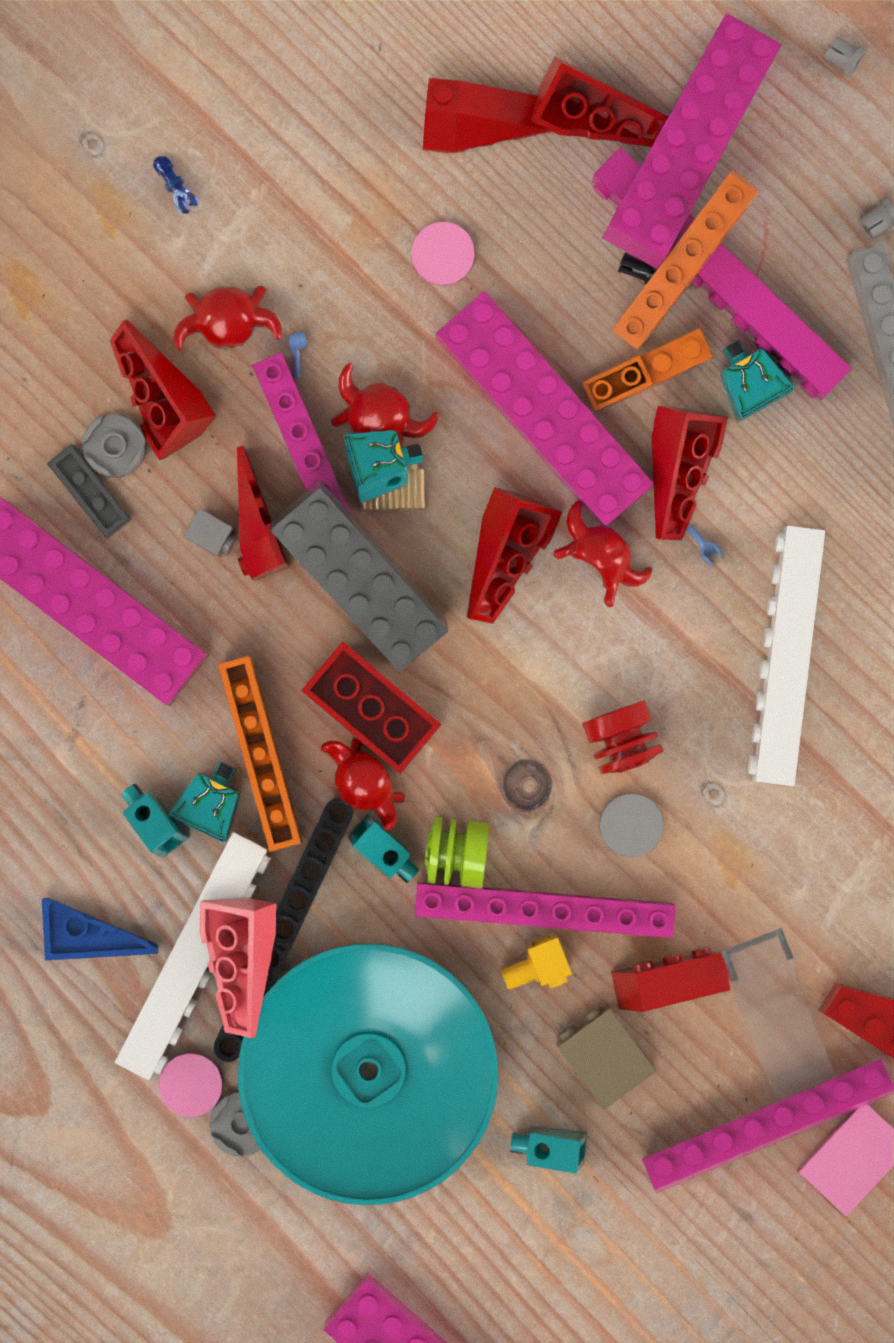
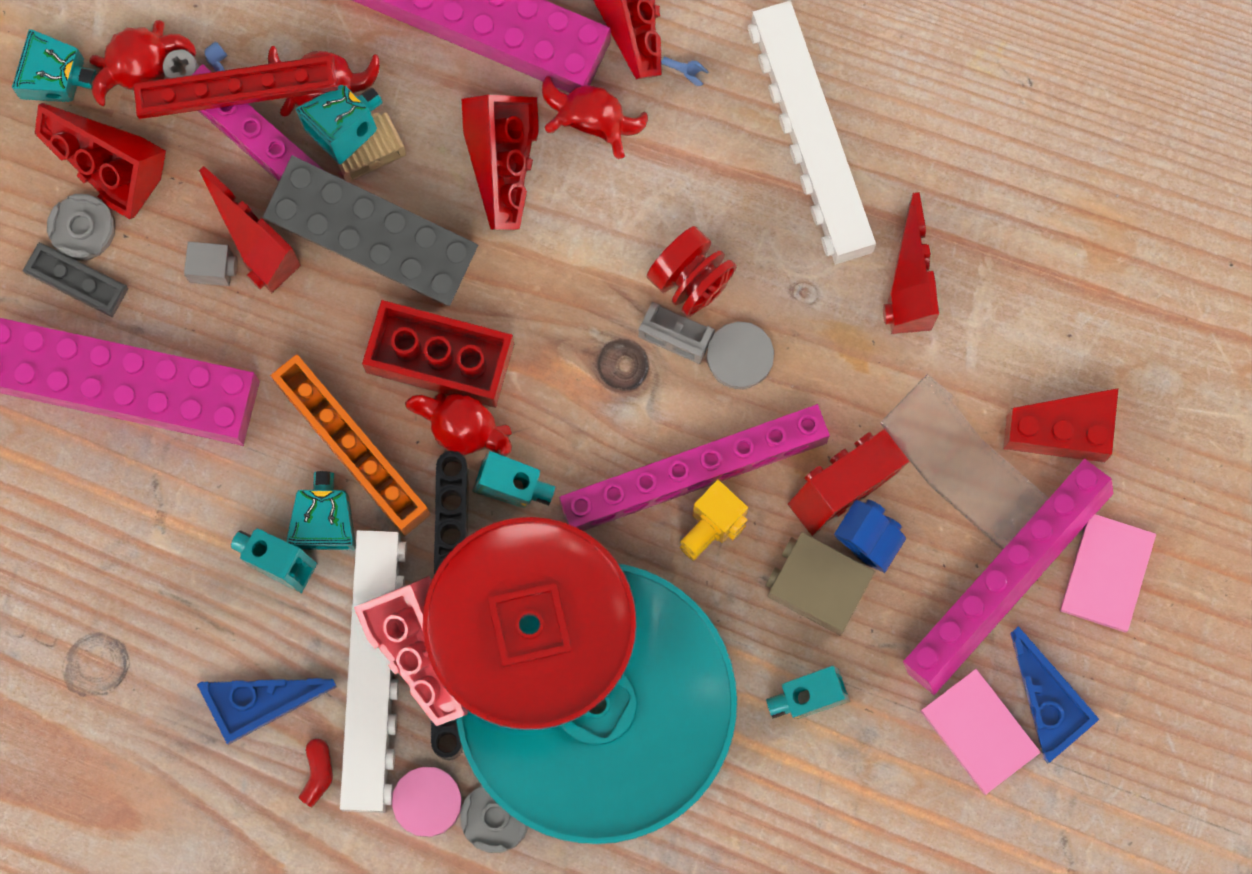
camera: 25 degrees left, 10 degrees down
(113, 1019) = (320, 772): none -> red arm
(148, 291) = (50, 70): none -> teal torso
(256, 338) = (172, 64): none -> light grey bush
(300, 390) = (235, 86): none -> red tile
(329, 1036) = (517, 572): none -> red dish
(457, 852) = (584, 449): lime wheel -> none
(585, 780) = (675, 333): none -> light grey hinge
(668, 1037) = (871, 534): none -> blue brick
(680, 1241) = (980, 731): none -> bright pink tile
(753, 1253) = (1055, 706): none -> blue wing
(804, 841) = (913, 290): none -> red wedge

